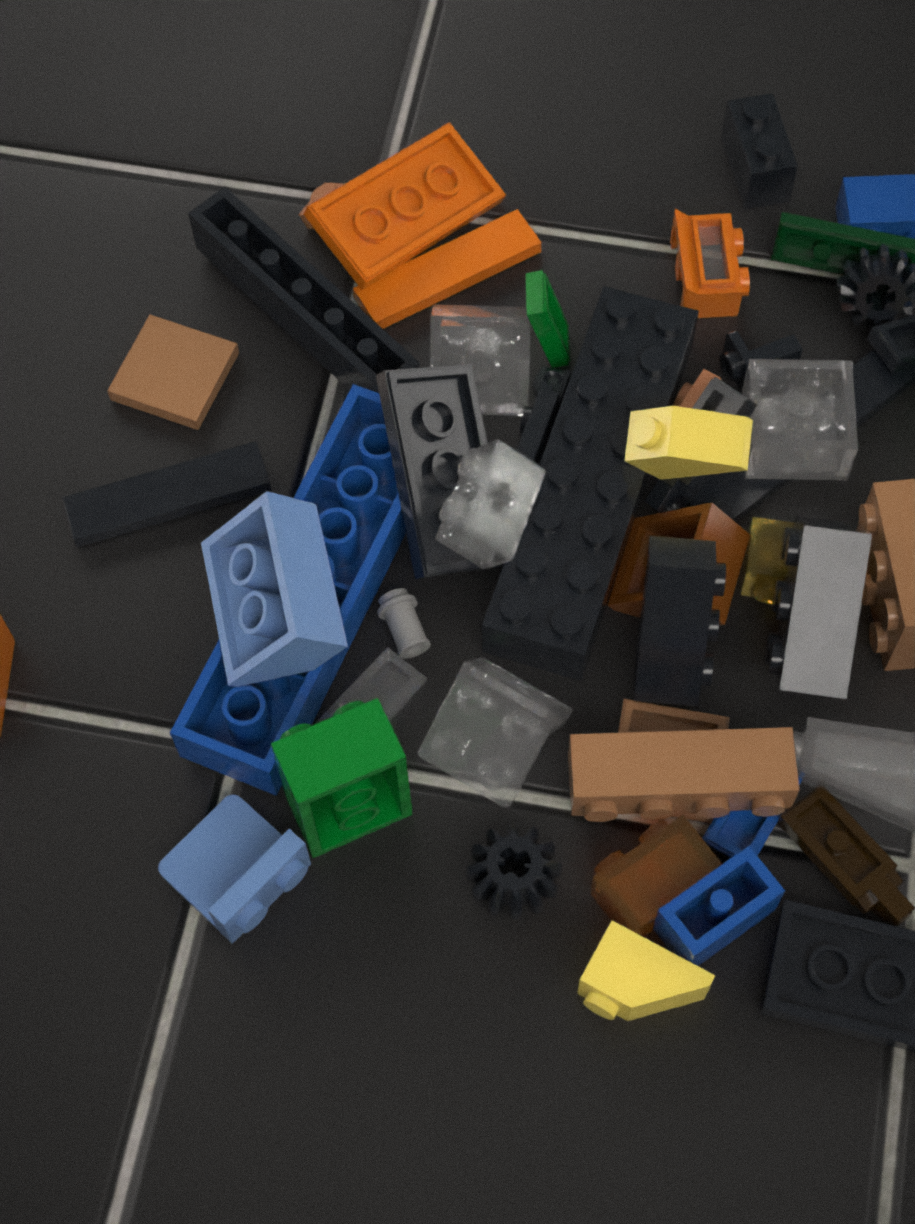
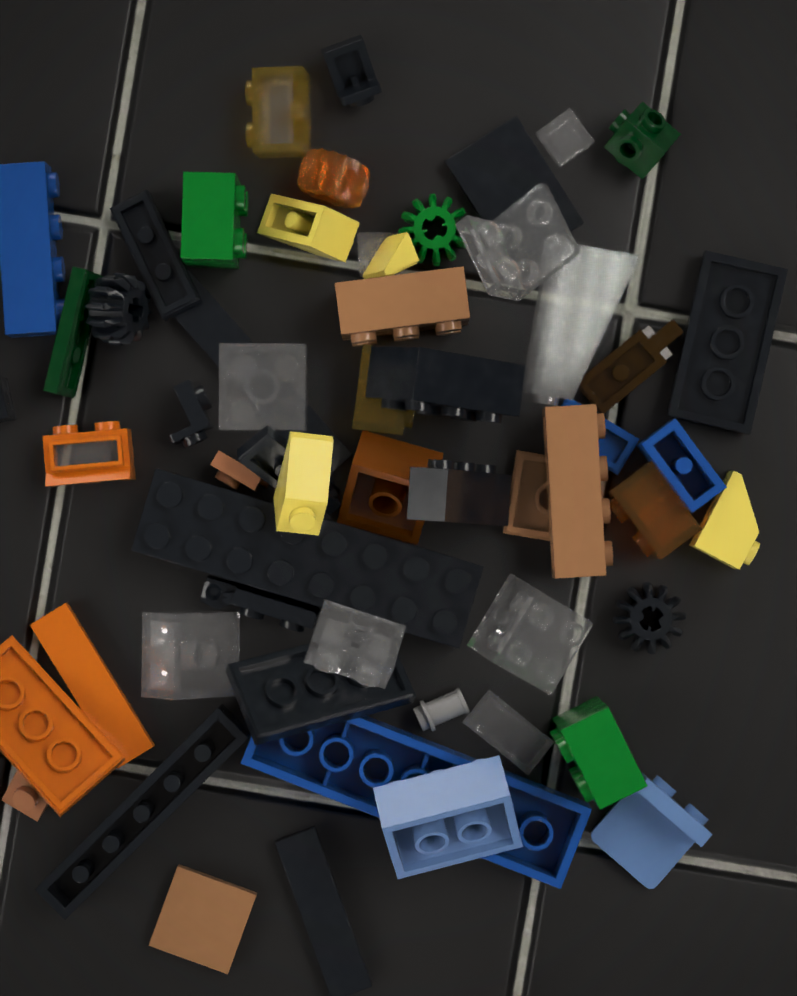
camera: 90 degrees left, 25 degrees up
(547, 319) = (162, 598): green tile -> none

